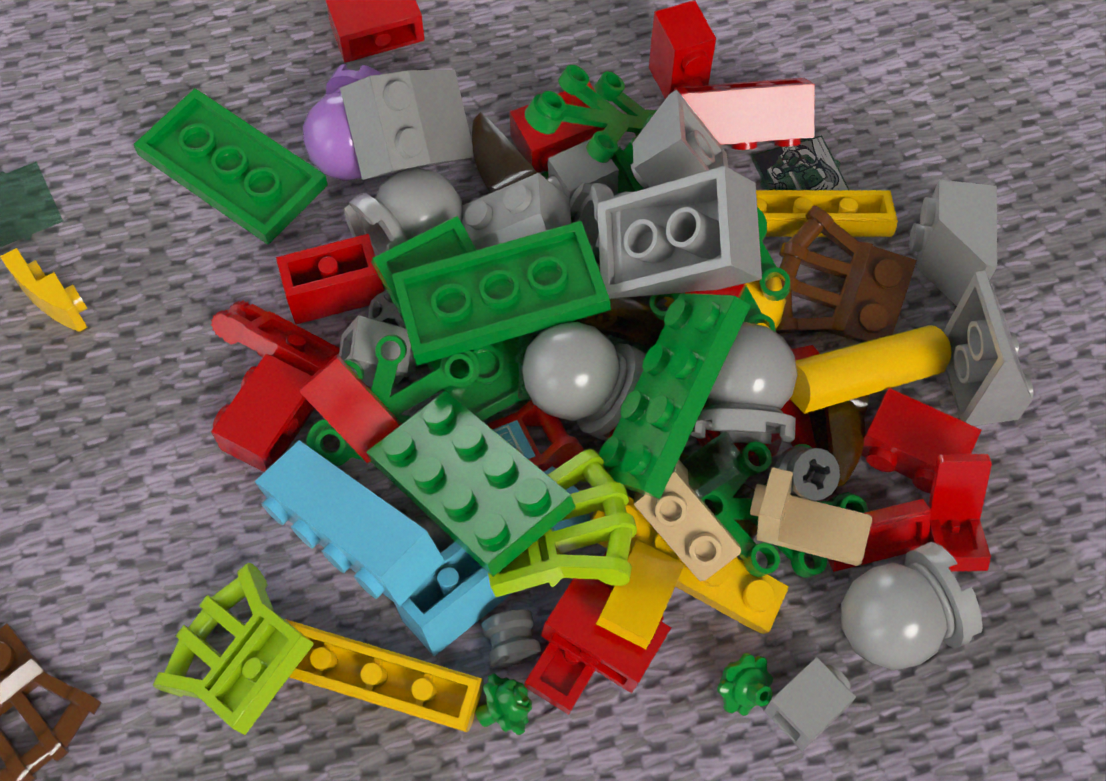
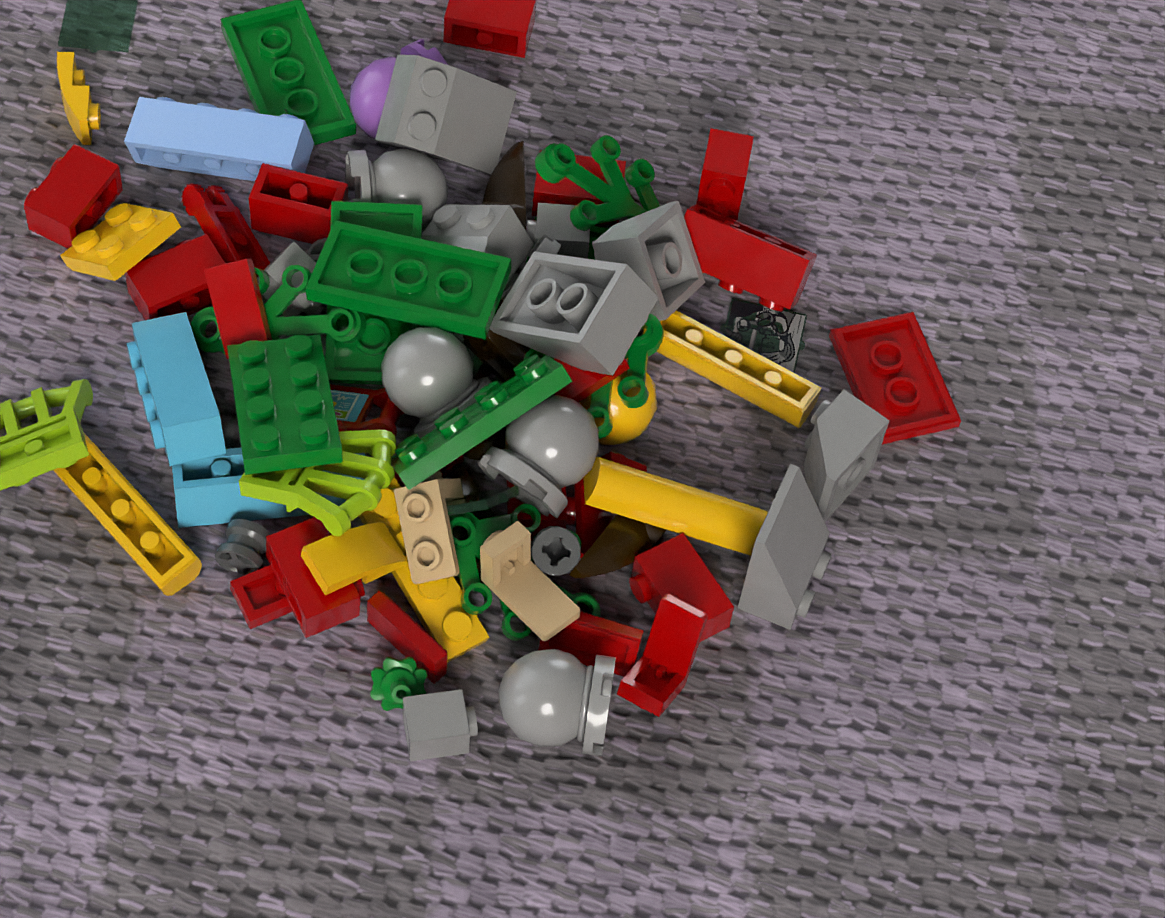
camera: 25 degrees right, 5 degrees down
(107, 388) = (72, 196): none -> red brick
(186, 406) = (119, 241): none -> yellow plate
(210, 258) = (216, 139): none -> light blue brick
(505, 704) = (205, 590): green plant -> none
(721, 632) = (406, 635): none -> red tile
(871, 287) = (736, 457): reddish brown plate -> none
(927, 144) = (896, 375): none -> red tile

